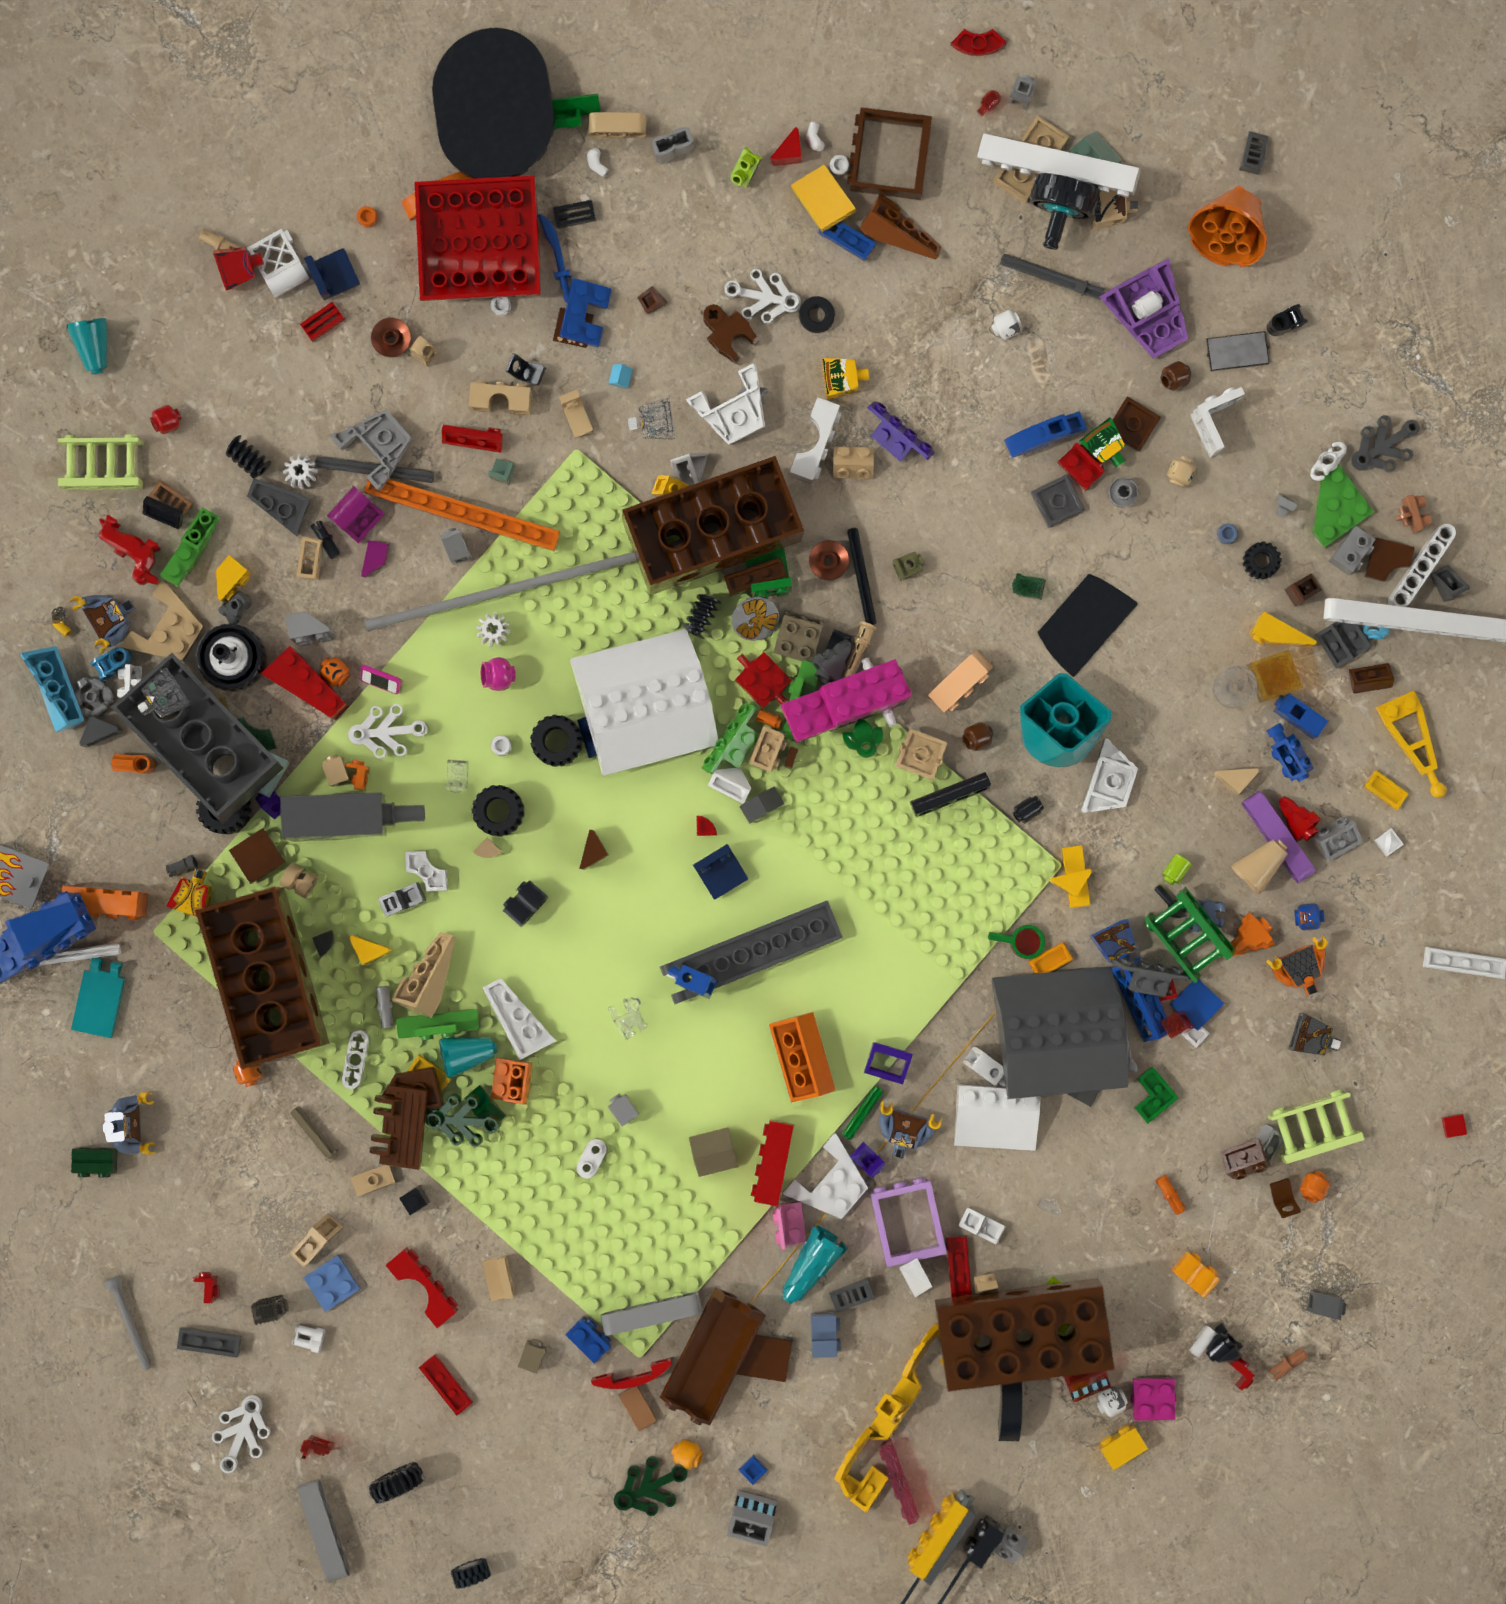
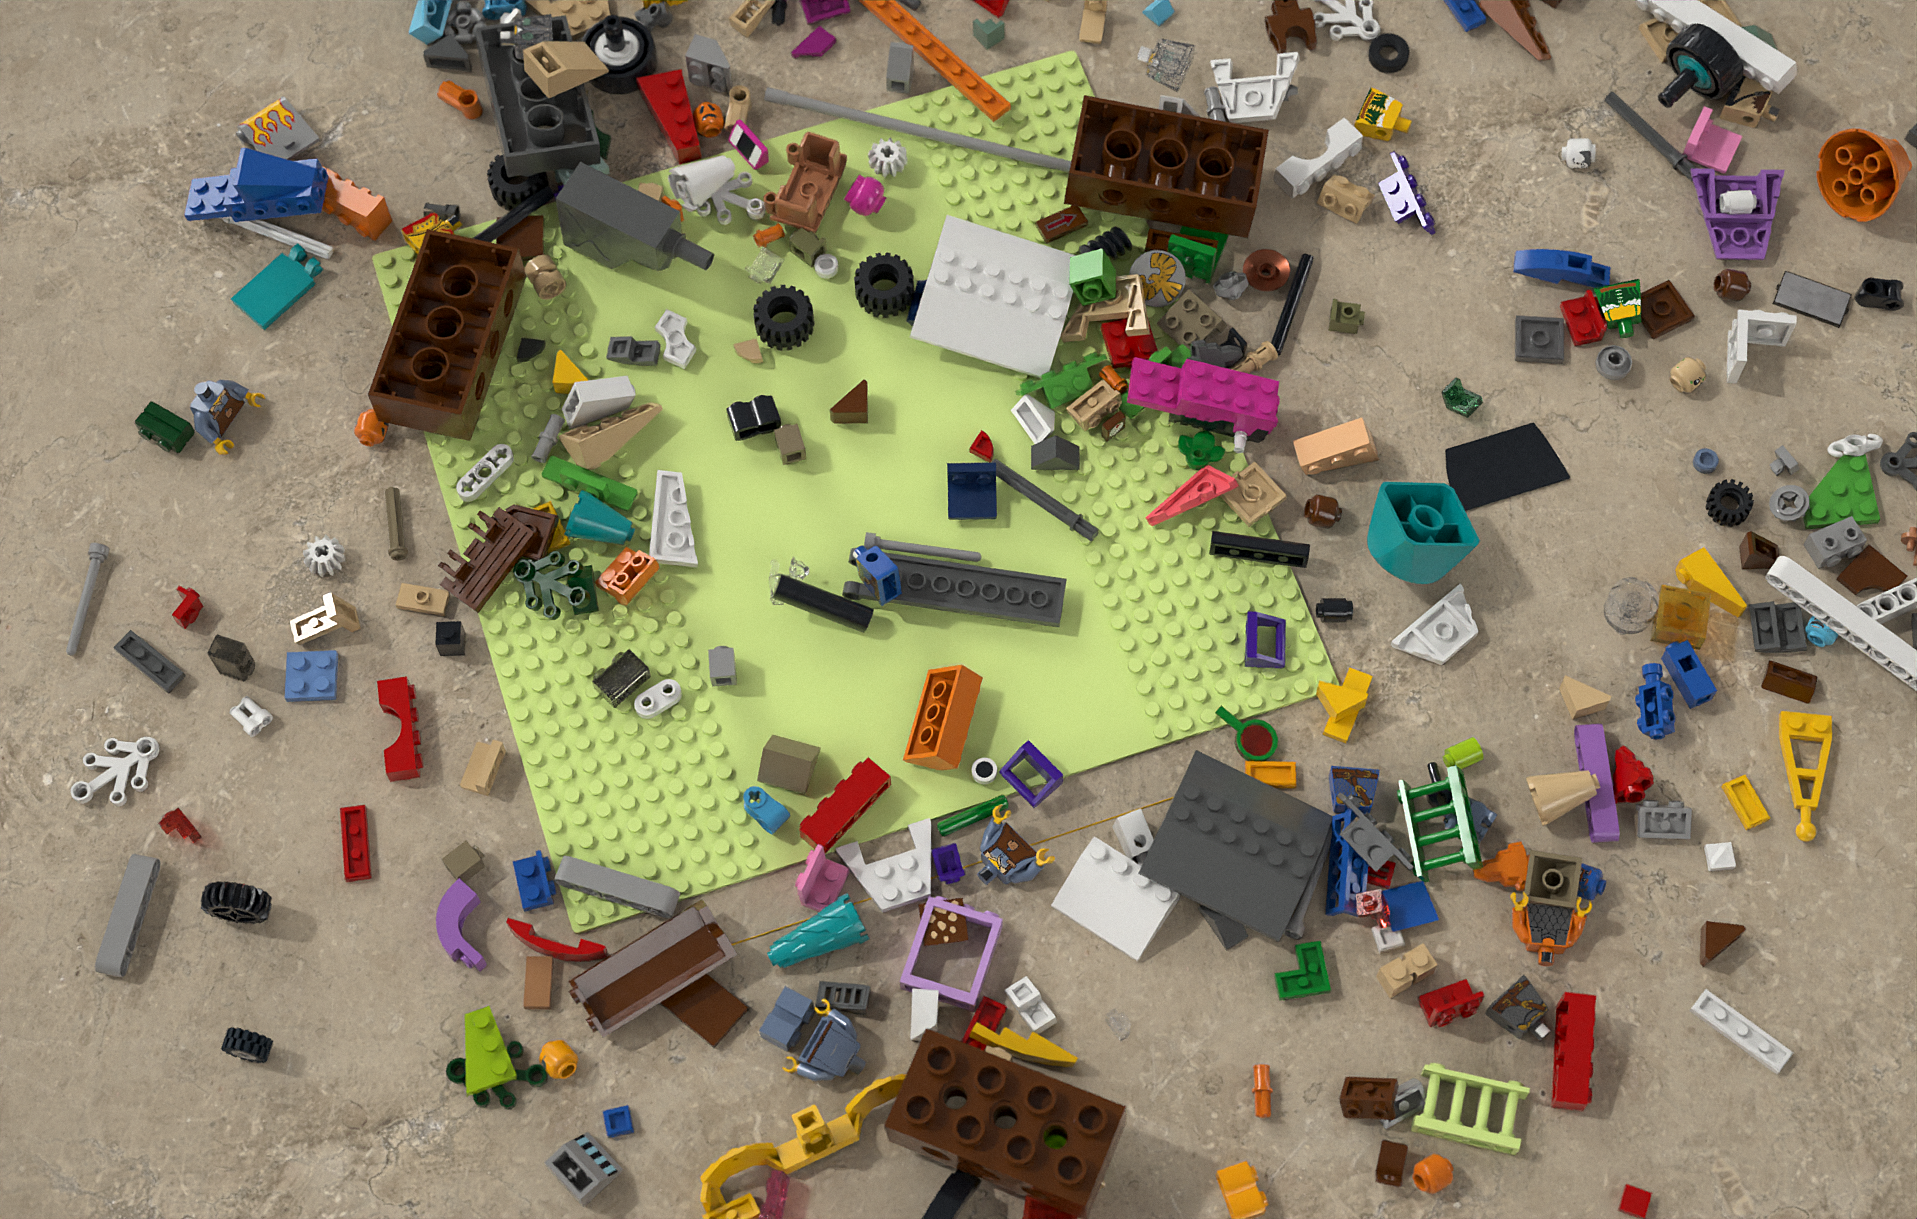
camera: 30 degrees right, 20 degrees down
(205, 707) = (561, 65): none -> tan slope
(240, 853) = (516, 215): none -> black axle
(274, 1195) = (324, 555): none -> white gear
(352, 653) = (738, 109): none -> tan piece
(367, 736) = (700, 180): none -> white cone
(403, 956) = (597, 399): none -> white slope
(443, 746) = (768, 235): none -> orange pin
(448, 690) = (810, 185): none -> nougat container
(478, 739) = (807, 246): none -> olive brick
(552, 1406) = (450, 916): none -> medium lavender arch
(556, 1161) = (621, 678): none -> clear smoke brick
(564, 908) = (790, 444): none -> dark tan brick
(635, 1480) = (485, 1053): none -> lime wing
(655, 609) = (1061, 223): none -> reddish brown tile
(666, 1021) = (822, 603): none -> black brick
(673, 950) = (873, 540): none -> light grey piece
(709, 649) = (1092, 277): none -> bright green head
(714, 441) = (1215, 108): none -> light grey pin
(723, 1198) = (767, 812): none -> dark azure piece
(731, 656) = (1127, 304): none -> tan wing
(774, 845) = (1045, 501): none -> dark grey axle
(810, 588) = (1231, 285): none -> light grey plate
(853, 1077) = (984, 771): none -> tile
(867, 1340) = (830, 1048): none -> sand blue torso
(882, 773) = (1198, 489): none -> coral wing
(893, 1208) = (944, 925): none -> reddish brown sticker
(984, 870) = (1252, 658): none -> dark purple tile
(1002, 1259) = (1034, 1049): none -> yellow slope
(1100, 259) = (1711, 144): none -> bright pink bracket
(1228, 1047) = (1397, 974): none -> tan piece
(1264, 1059) = (1450, 1002): none -> red bracket
(1288, 932) = (1553, 879): none -> dark tan slope
(1300, 528) = (1789, 493): none -> light grey gear
(1363, 1048) = (1573, 1051): none -> red wedge
(1418, 908) = (1717, 938): none -> reddish brown slope

